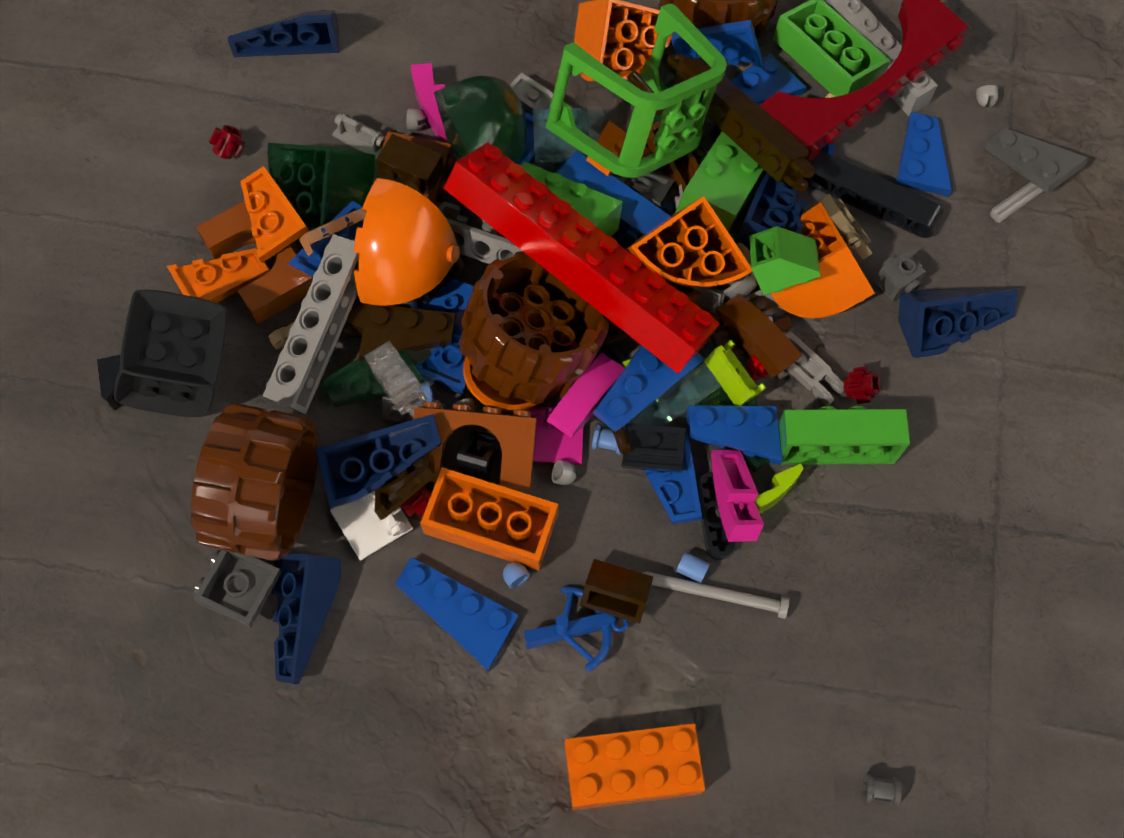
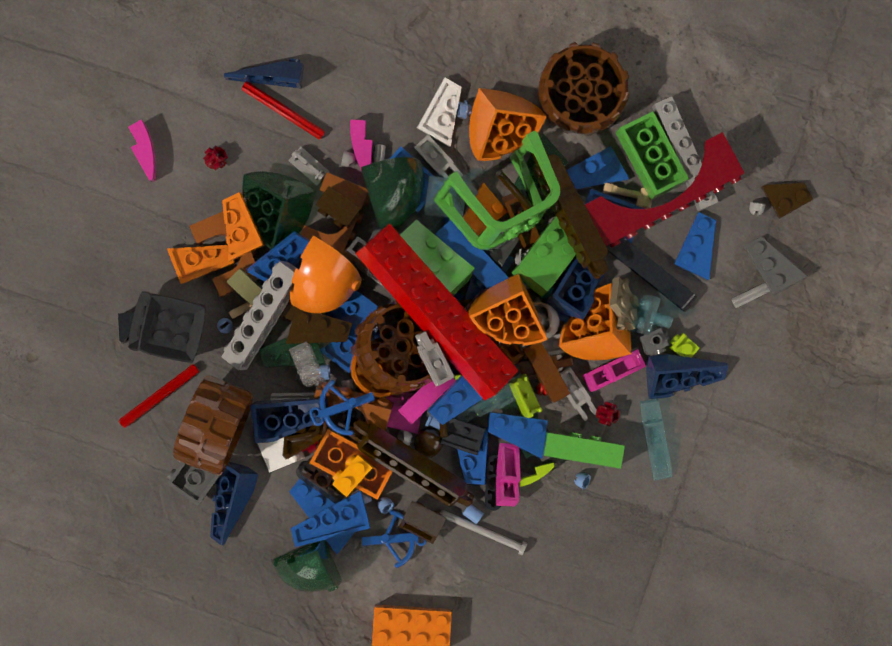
camera: 15 degrees right, 20 degrees up
(123, 147) = (144, 149): none -> dark pink slope
(158, 486) = (158, 396): none -> red axle
(268, 362) = (228, 328): none -> medium blue hinge
(284, 288) = (245, 285): none -> olive slope
(316, 77) = (283, 110): none -> red axle
(332, 227) = (330, 228): medium nougat piece -> none
(443, 697) = (308, 568): none -> clear green brick
(449, 569) = (313, 483): none -> black beam
(464, 418) = (349, 404): none -> blue piece
(480, 609) = (338, 520): none -> blue wing
(492, 522) = (352, 475): none -> light orange brick
(534, 47) = (441, 113): none -> white wing
(557, 582) = (385, 505): none -> medium blue hinge
(562, 38) = (464, 109): none -> medium blue plate
(581, 497) = (410, 464): none -> dark brown hinge
(589, 318) = (433, 359): none -> light grey hinge
(601, 474) = (428, 442): none -> dark brown hair
(733, 40) = (568, 138): blue wing -> none
(783, 259) = (570, 331): bright green slope -> none
(849, 488) = (583, 480): none -> medium blue hinge
(852, 328) = (613, 371): none -> dark pink slope
(887, 239) = (648, 316): none -> clear light blue plate
(941, 278) = (683, 346): none -> lime bracket
(941, 413) = (655, 439): none -> clear light blue slope
(1021, 80) = (787, 197): none -> dark brown wing

